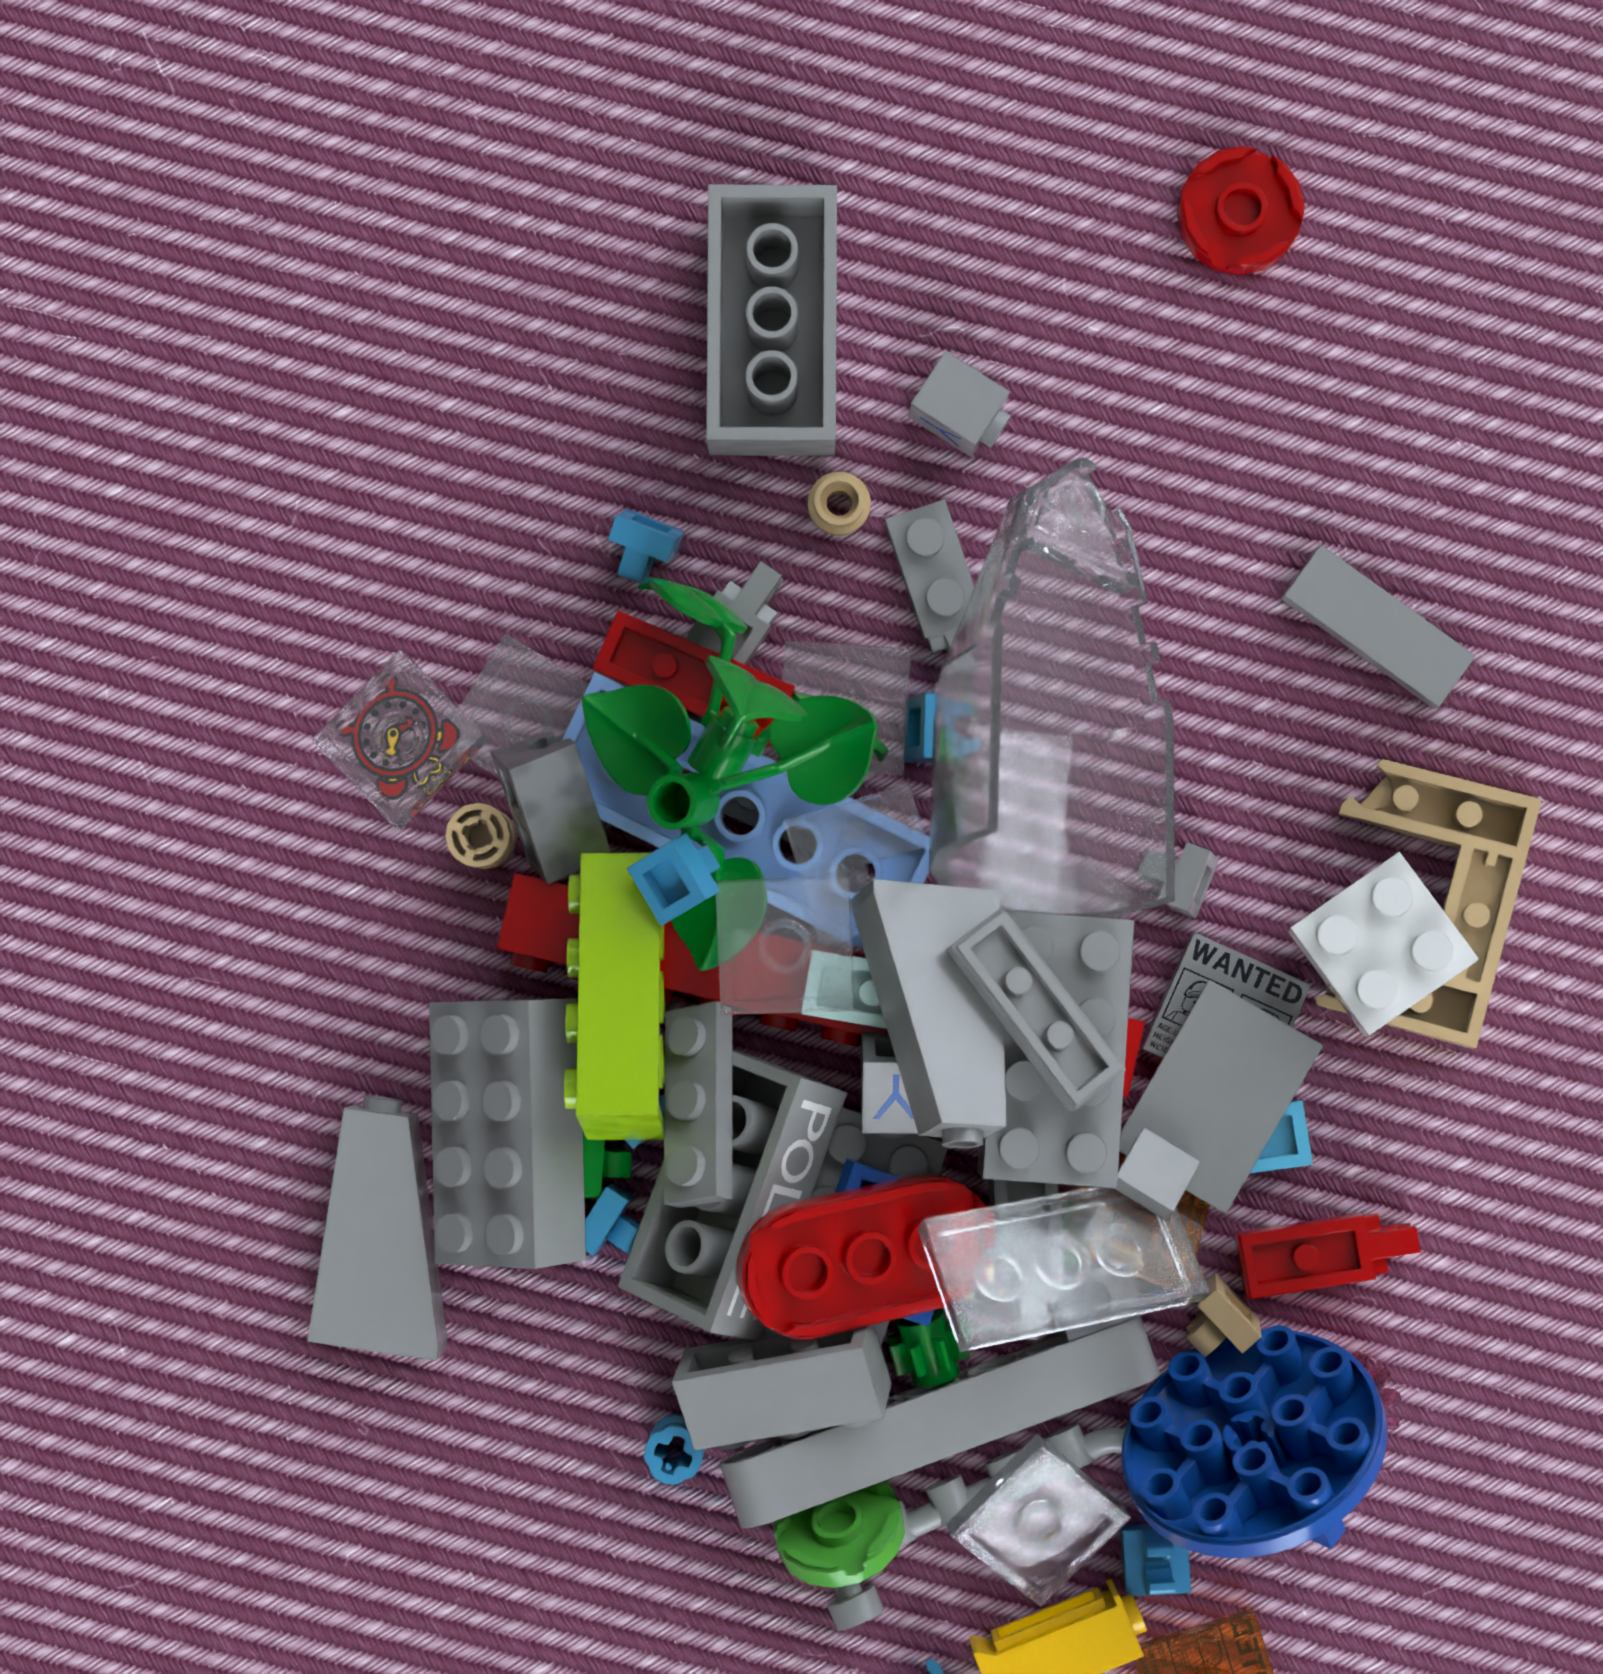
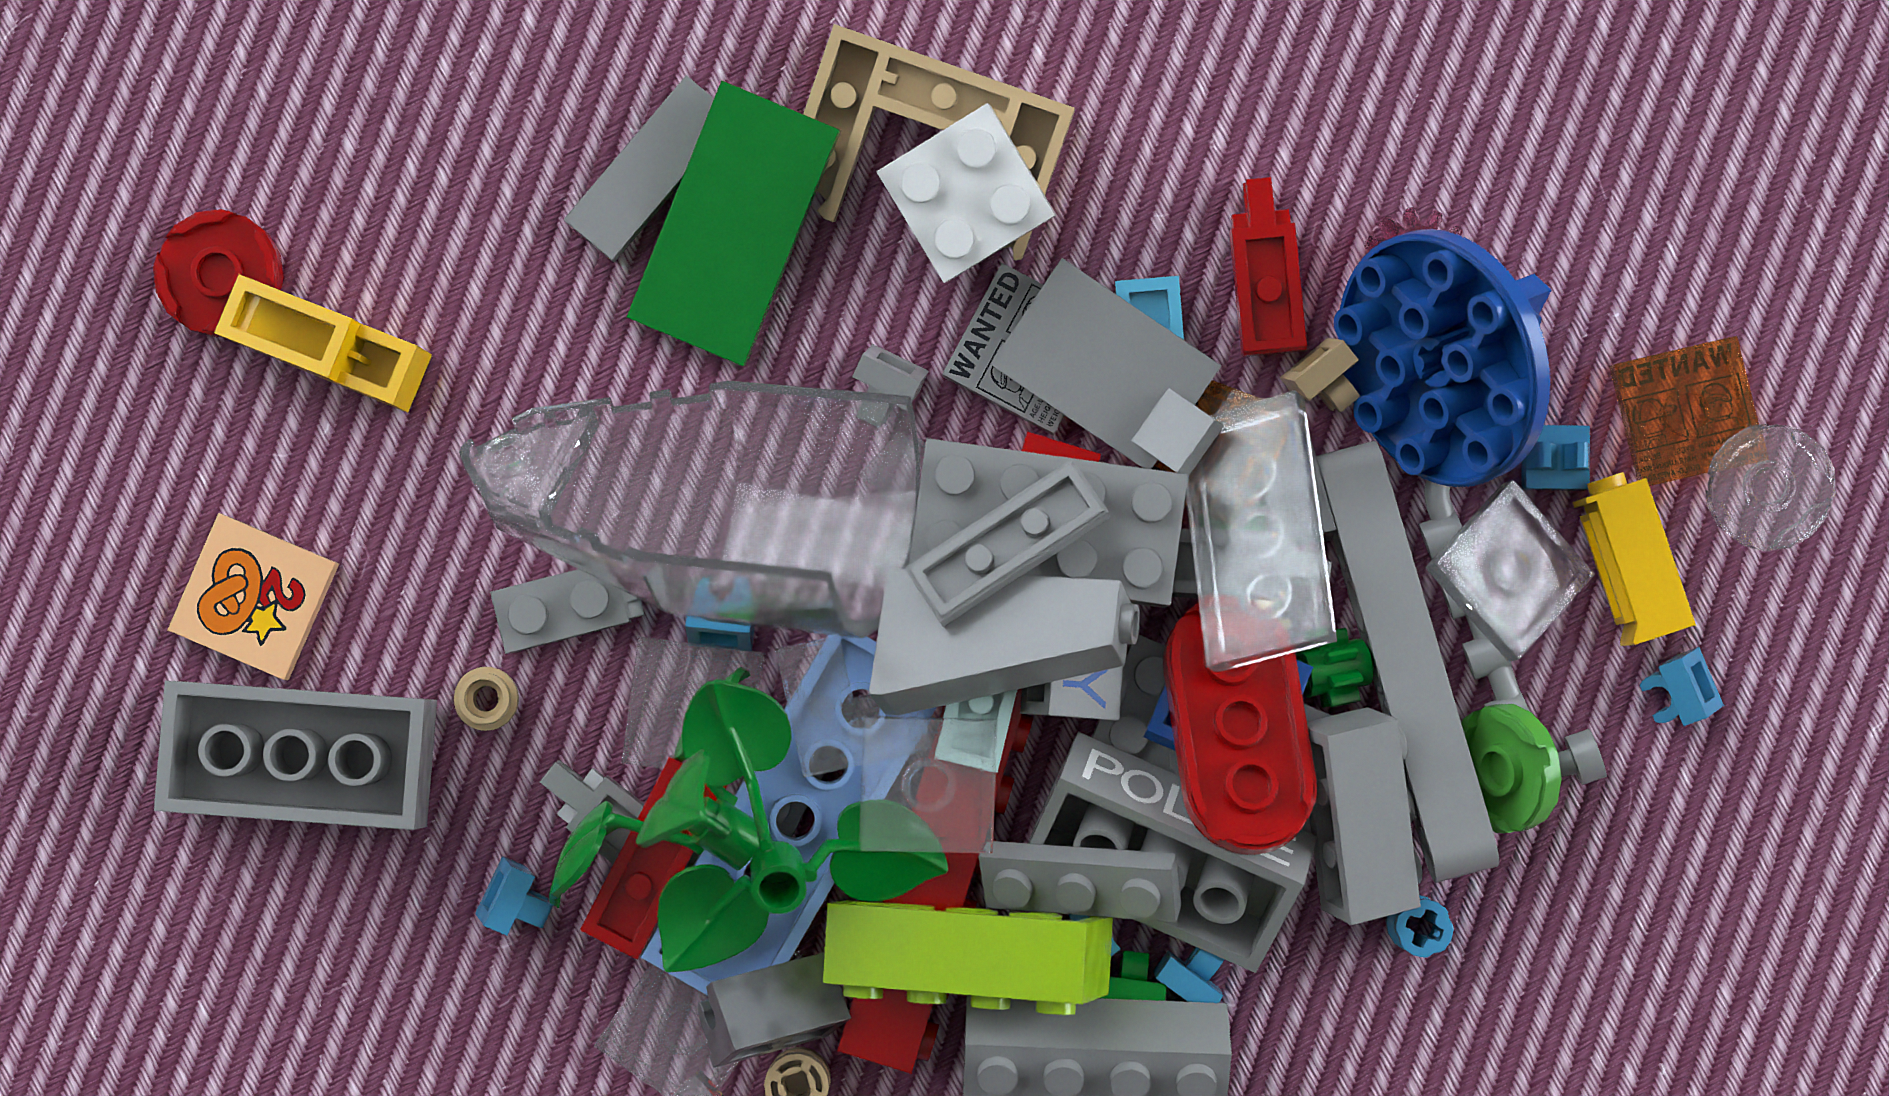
camera: 85 degrees left, 0 degrees up
(675, 878) = (854, 889): dark azure tile -> none
(923, 269) = (253, 596): none -> light nougat tile
(961, 405) = (396, 569): light grey brick -> none
(1179, 317) = (323, 343): none -> yellow slope
(1331, 713) = (733, 223): none -> green tile

